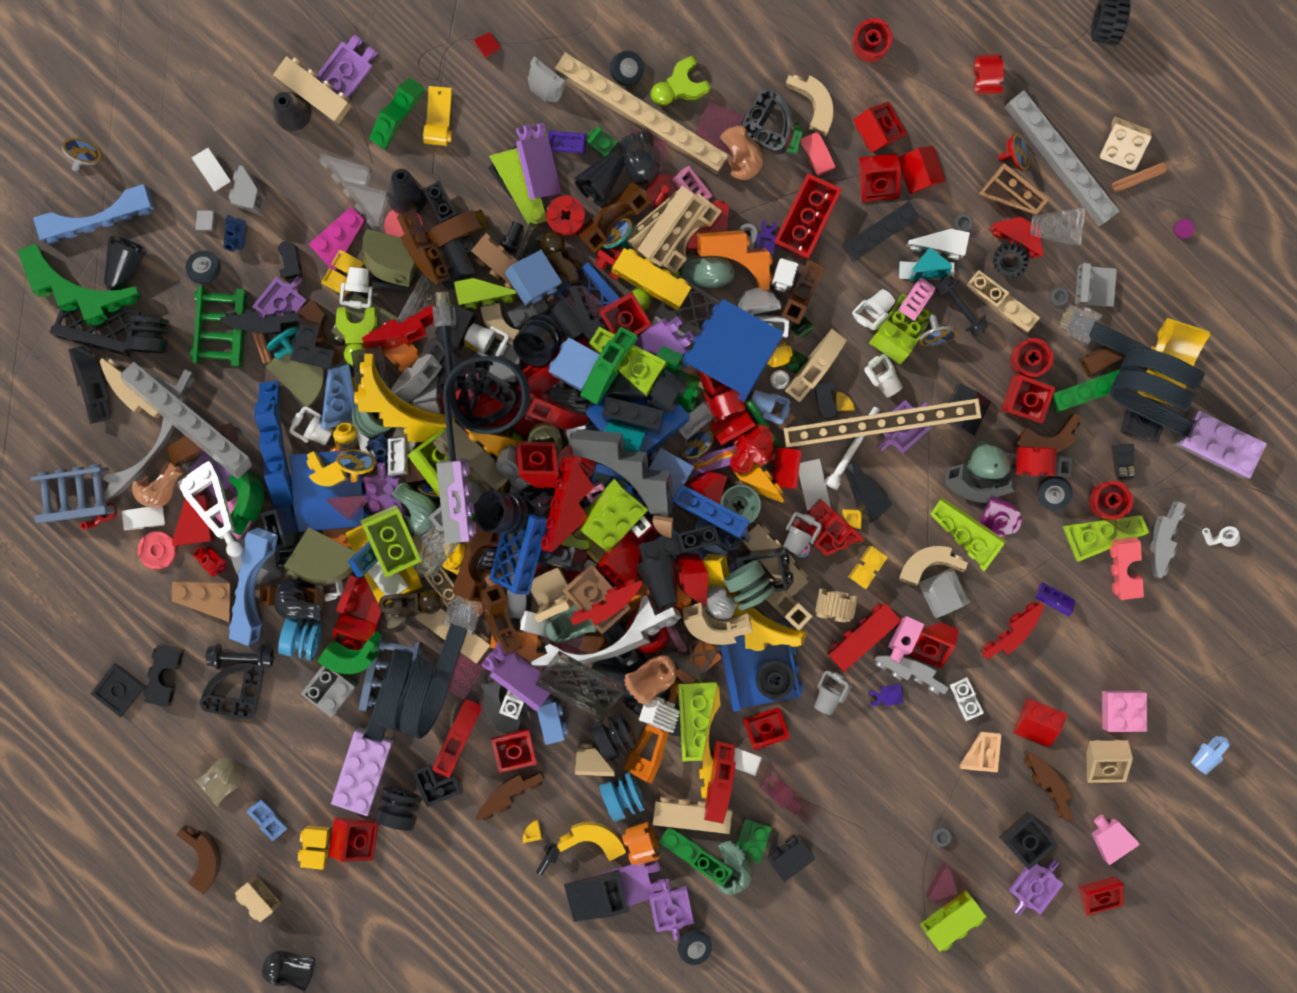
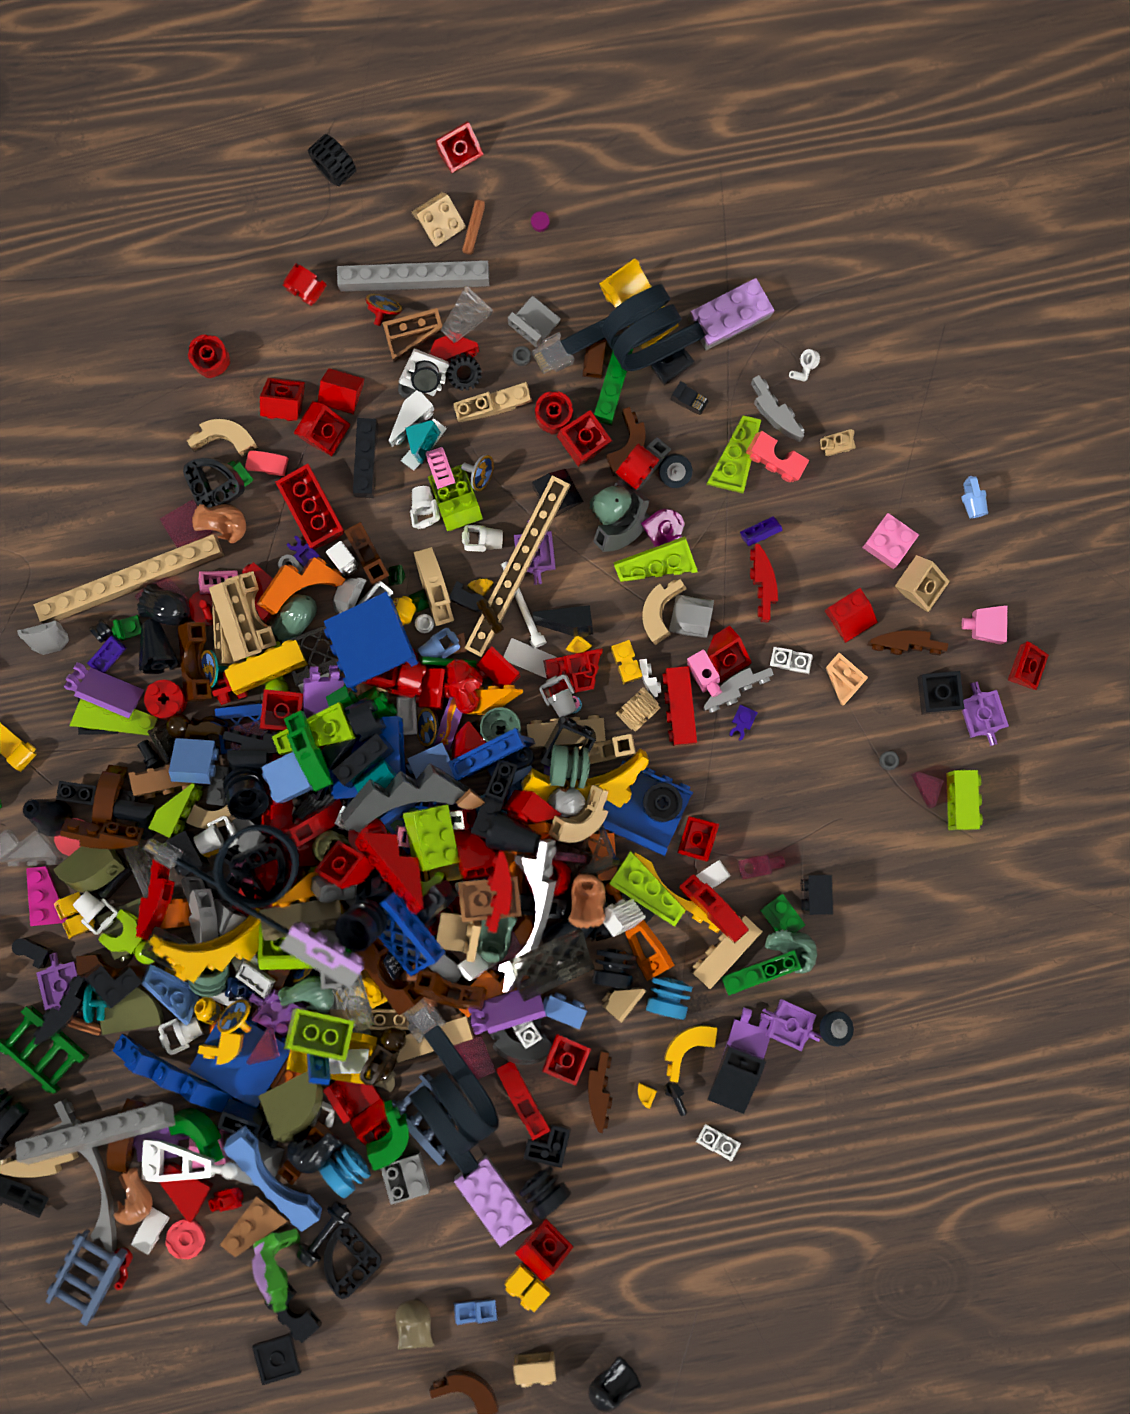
camera: 55 degrees left, 5 degrees down
(176, 639) = (268, 1275): none -> bright green hips
(536, 917) = (718, 1142): none -> white slope
(583, 122) = (101, 630): none -> black wheel
(626, 68) = (84, 564): black wheel -> none
(641, 843) = (719, 1010): orange brick -> none
(679, 85) = (130, 532): lime piece -> none
(825, 431) = (490, 616): none -> dark brown axle
(828, 696) = (710, 769): light grey piece -> none
(864, 600) = (651, 683): none -> white slope
(977, 325) = (447, 437): black piece -> none
(984, 228) = (423, 374): none -> piece
(1118, 493) = (710, 441): red brick -> none
(1175, 610) = (838, 443): none -> tan hips
(1198, 115) = (459, 147): none -> red slope

